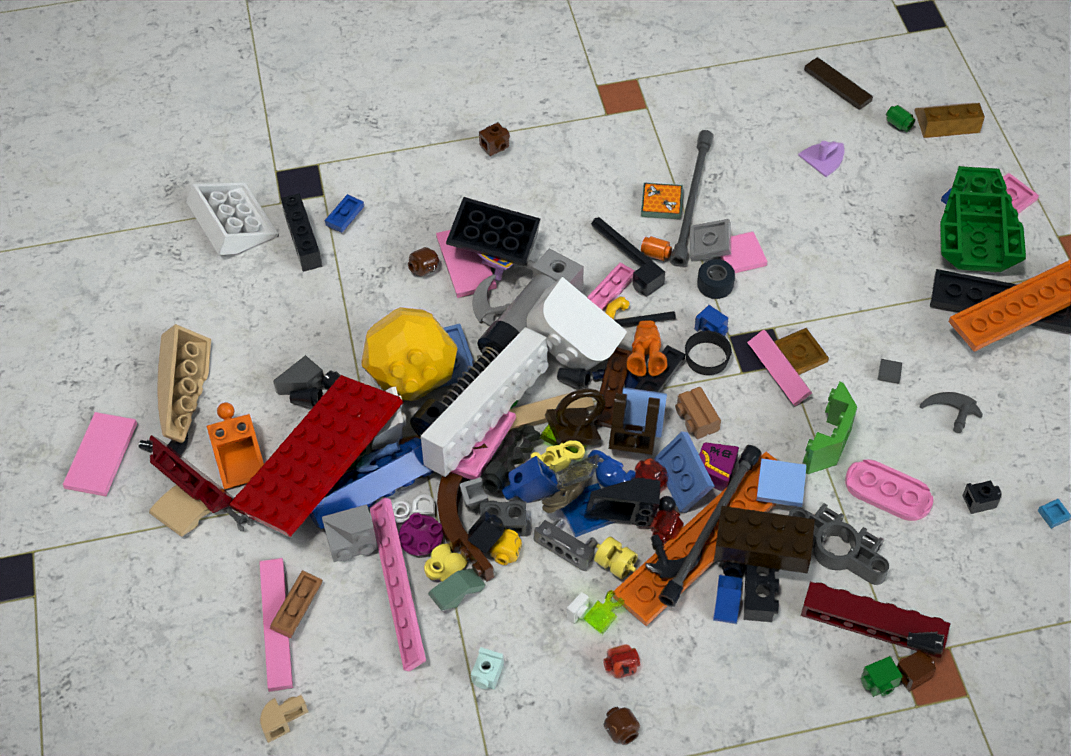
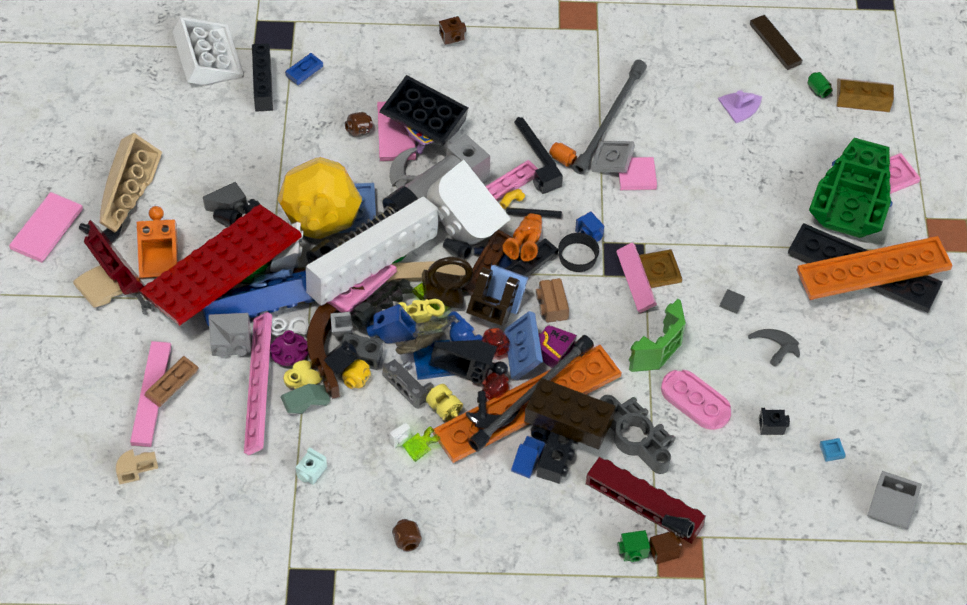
camera: 10 degrees right, 0 degrees up
(621, 661) = (423, 485): clear red head -> none
(661, 200) = (582, 114): tile -> none
(716, 279) = (606, 191): black wheel -> none
(781, 482) = (603, 372): light blue tile -> none

